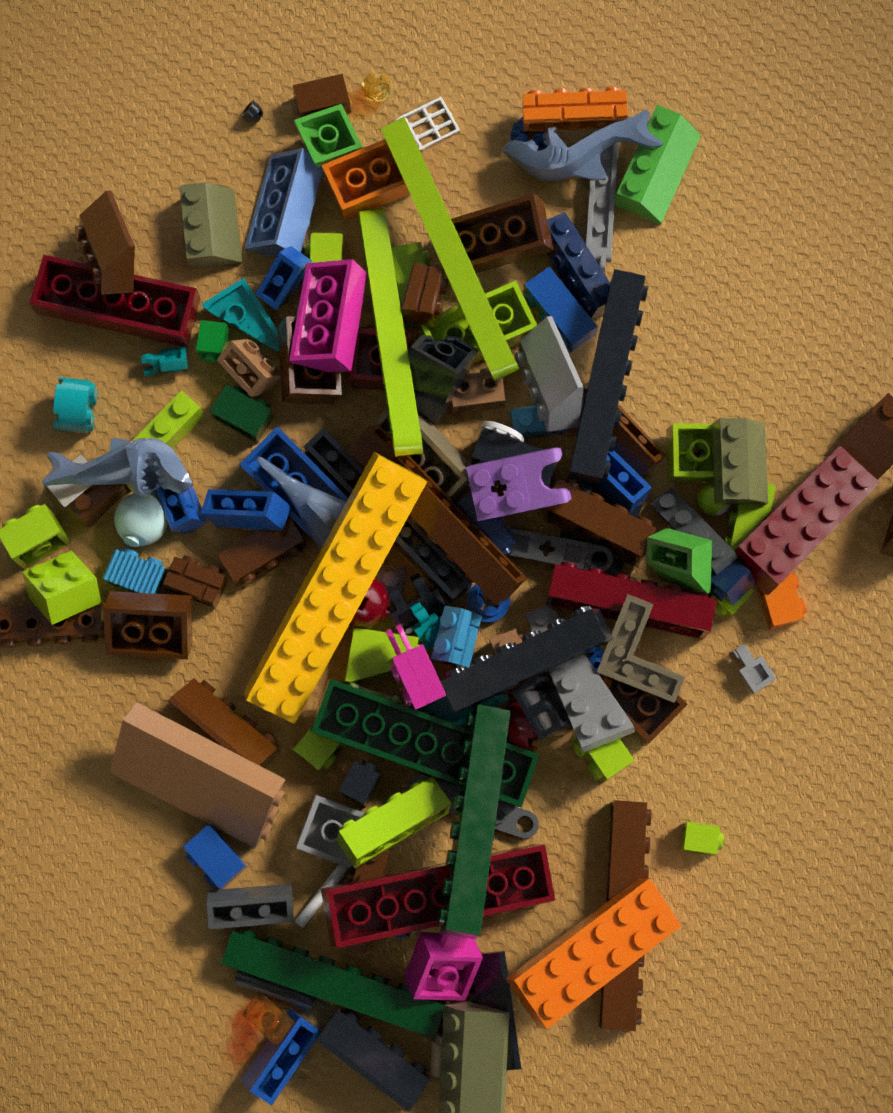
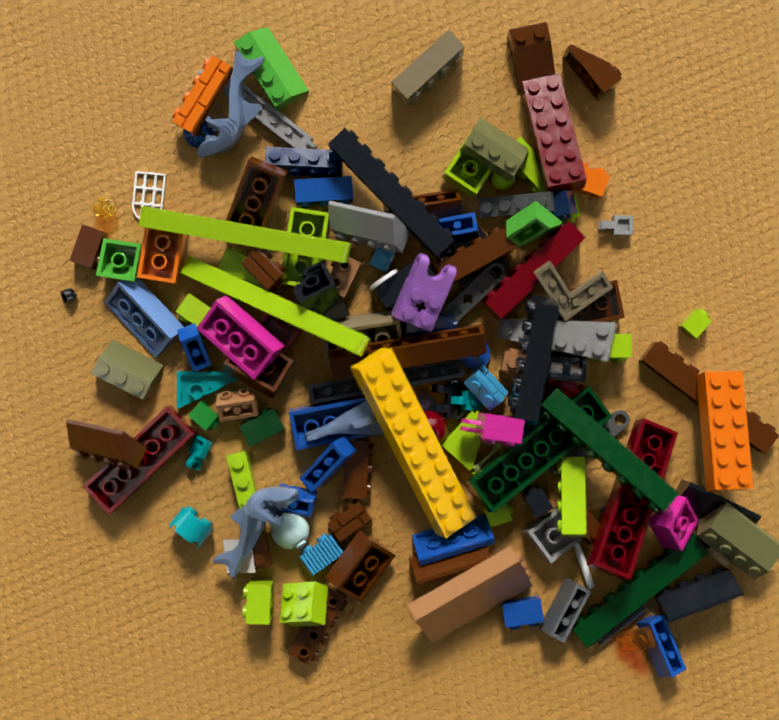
camera: 55 degrees left, 10 degrees up
(266, 730) = (468, 538): none -> blue tile
(778, 332) = (428, 68): none -> dark tan brick

